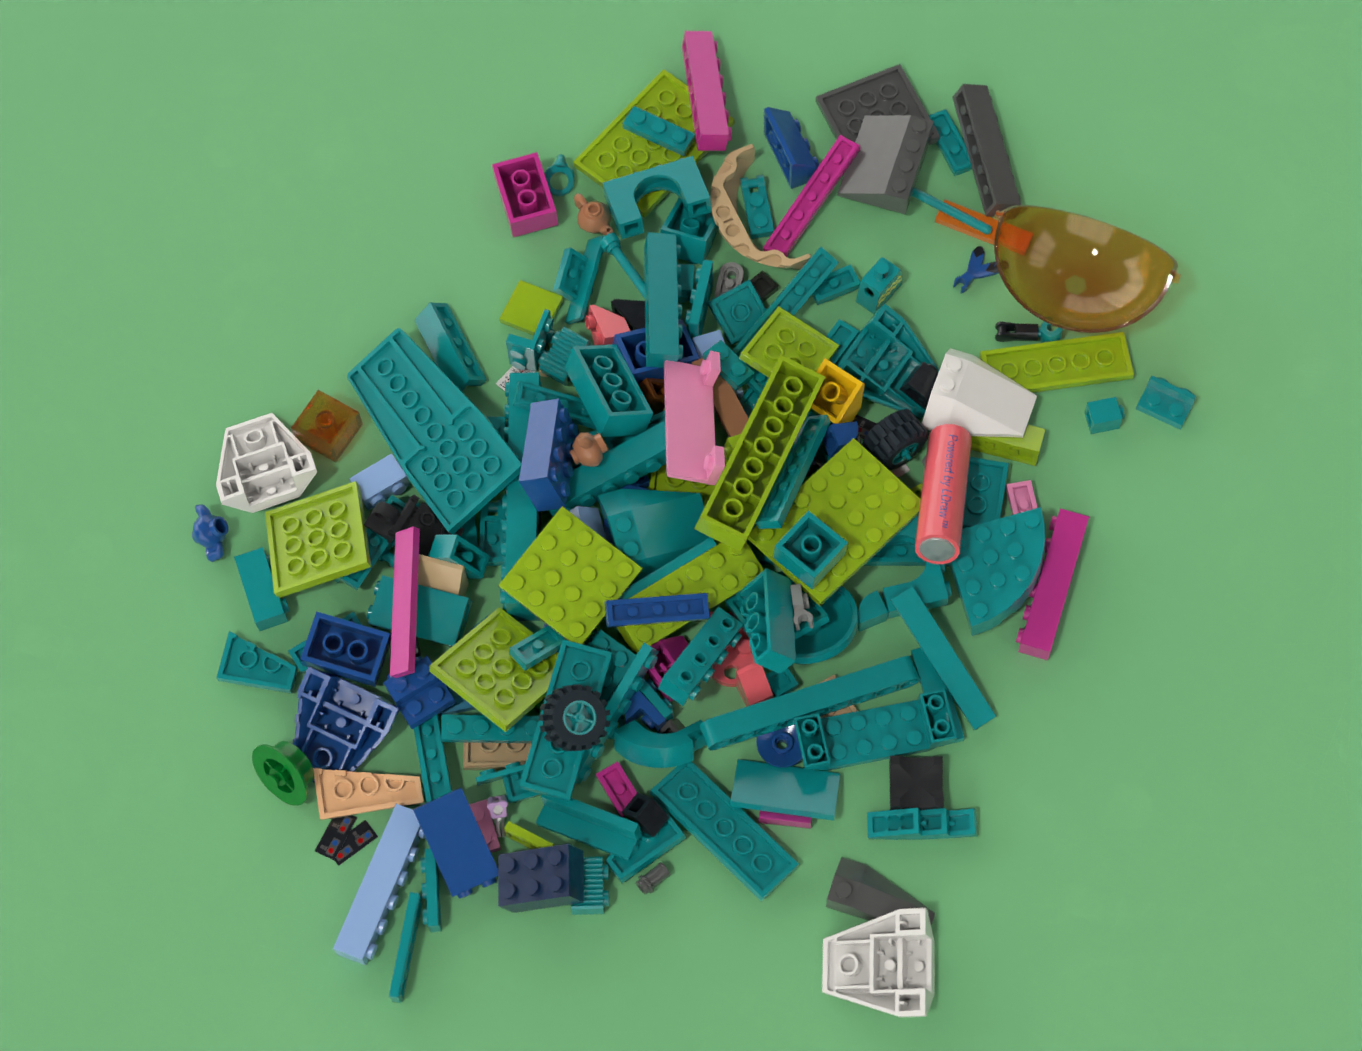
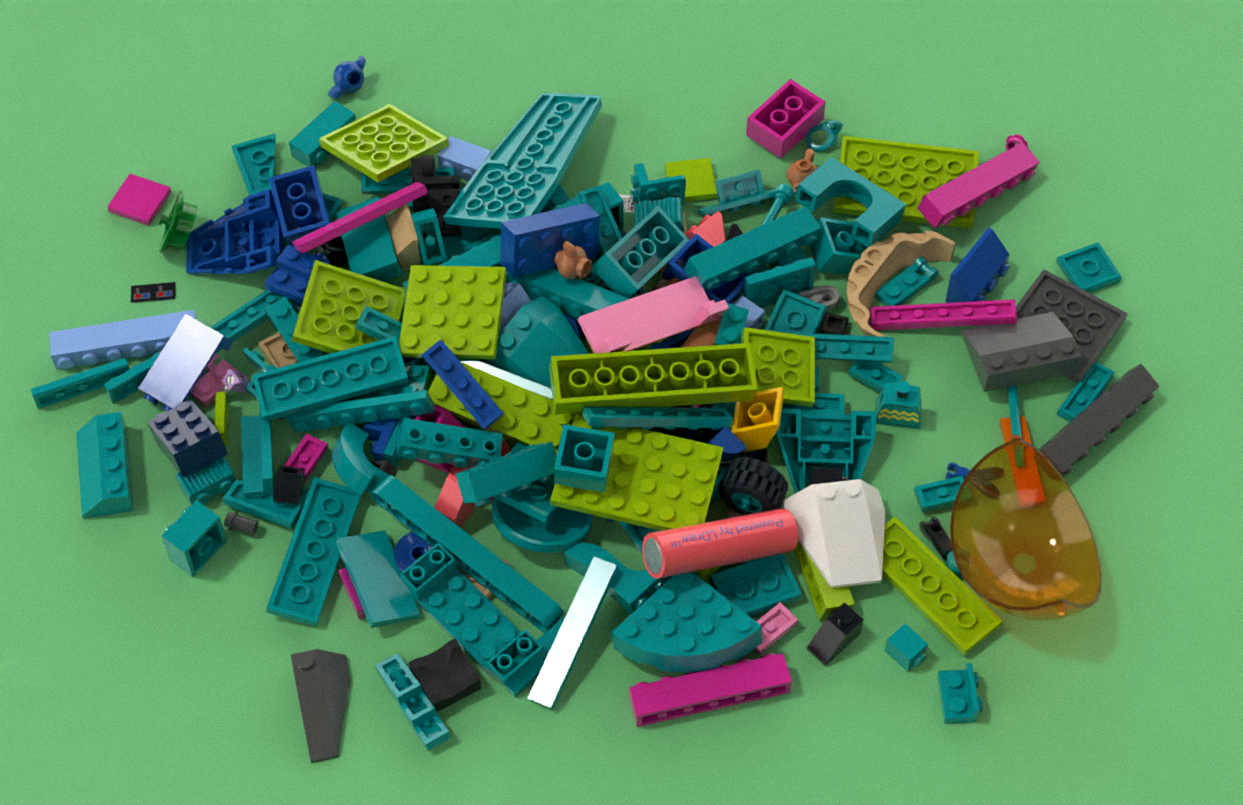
camera: 55 degrees right, 10 degrees down
(217, 794) = (139, 199): none -> dark pink tile
(262, 465) = (423, 78): white wedge -> none
(327, 425) = (486, 100): clear orange brick -> none
(353, 793) = (192, 284): light nougat wing -> none
(356, 840) = (153, 307): black sticker -> none
(449, 345) = (616, 145): teal panel -> none
(513, 970) = (104, 466): none -> teal slope
(574, 718) = (325, 373): black wheel -> none
(654, 929) = (194, 538): none -> teal brick
(658, 131) = (915, 173): teal plate -> none
(673, 37) = (1016, 138): none -> dark pink plate
(781, 683) = (476, 525): teal plate -> none
(800, 603) = (539, 488): light grey plate -> none
(832, 64) = (1089, 268): none -> teal tile
(884, 963) = (262, 736): white wedge -> none
(979, 304) = (938, 493): none -> teal plate
(1060, 460) = (836, 634): none -> black slope

